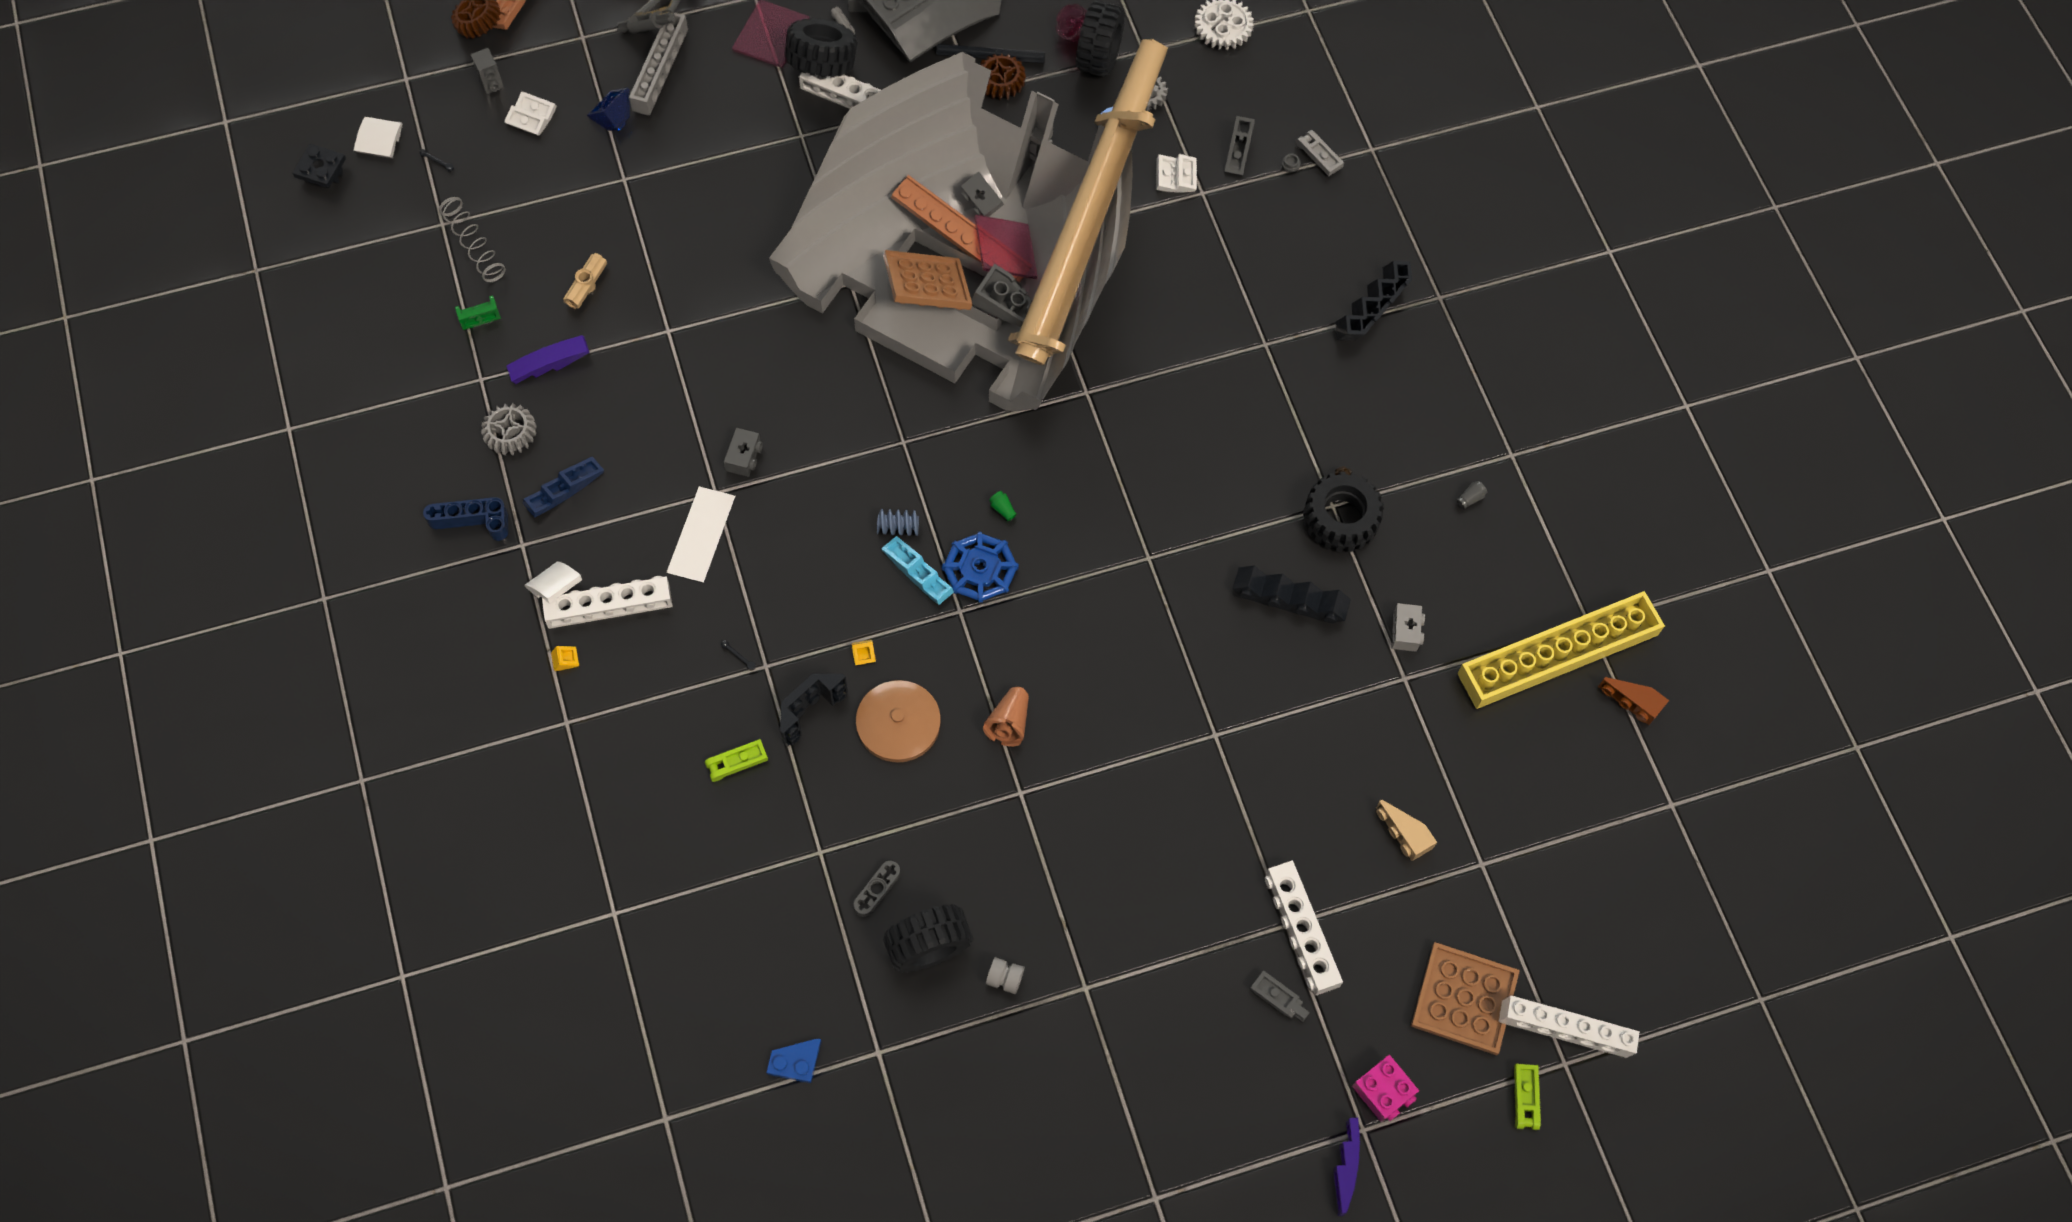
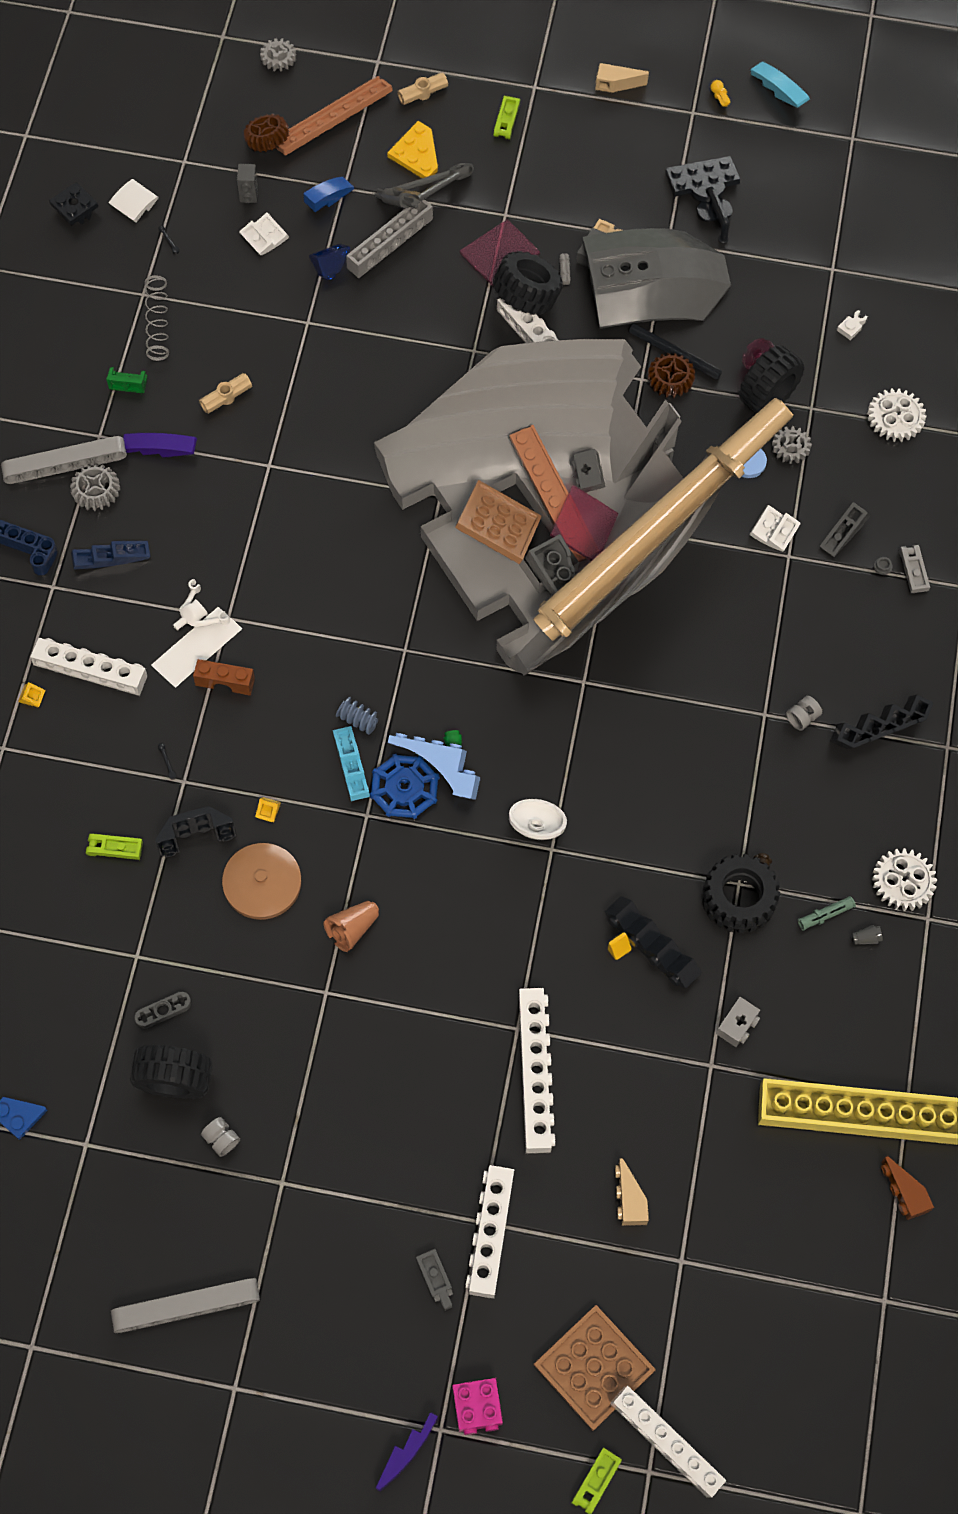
camera: 30 degrees right, 0 degrees up
(460, 417) = (63, 460): none -> light grey beam
(553, 582) = (56, 629): white slope -> none
(570, 48) = (327, 193): none -> blue slope
(680, 501) = (194, 612): none -> white piece
(743, 452) = (267, 595): dark grey brick -> none
(760, 543) = (211, 673): none -> dark orange arch
(1005, 522) = (446, 760): none -> light blue arch
(1065, 1149) = (185, 1305): none -> light grey beam
(1123, 535) = (537, 819): none -> white dish
(1254, 773) = (536, 1142): none -> white brick
(1263, 614) = (619, 946): none -> yellow slope
(1301, 325) = (803, 713): none -> light grey wheel
(1420, 499) = (819, 916): none -> sand green pin
(1473, 430) = (896, 893): none -> white gear

